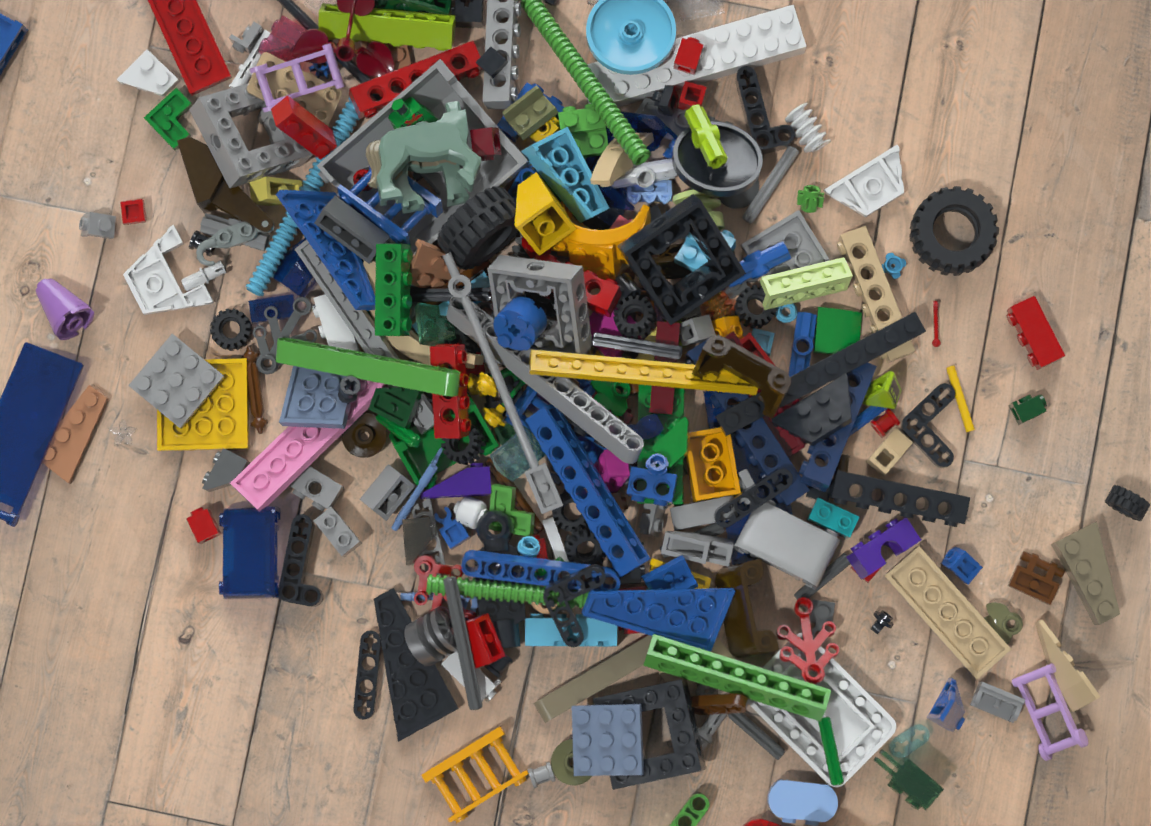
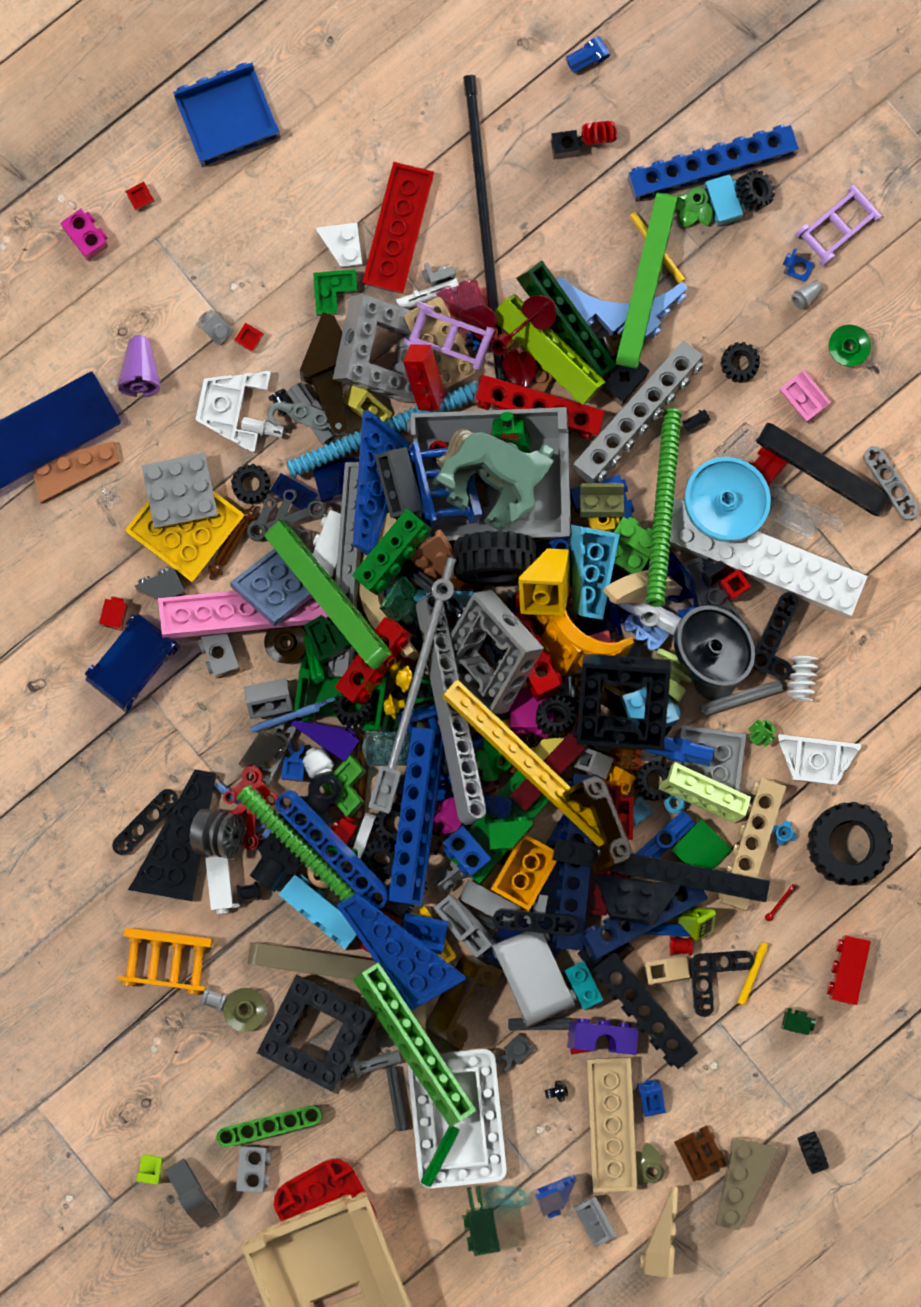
camera: 30 degrees right, 0 degrees up
(301, 559) = (165, 698): black beam -> none
(337, 532) = (208, 698): light grey brick -> none
(353, 387) = (304, 595): black bush -> none
(462, 643) = (232, 855): dark grey axle -> none
(484, 641) = (247, 864): red brick -> none
(486, 143) = (550, 497): dark red brick -> none
(491, 62) = (603, 439): black tile -> none
(519, 324) = (464, 653): blue brick -> none
(528, 546) = (339, 823): medium azure plate -> none
(565, 595) = (336, 881): black beam -> none
(607, 740) = (282, 1013): sand blue plate -> none
(637, 345) = (540, 739): axle -> none
(657, 459) = (484, 834): blue plate -> none
(688, 55) = (755, 552): red brick -> none
(706, 136) = (718, 623): lime piece -> none
(719, 704) = (386, 1054): reddish brown beam -> none
(802, 801) = (389, 1176): light blue brick -> none
(808, 645) = (487, 1065): plant -> none
(1047, 749) = (603, 1284): lavender piece -> none

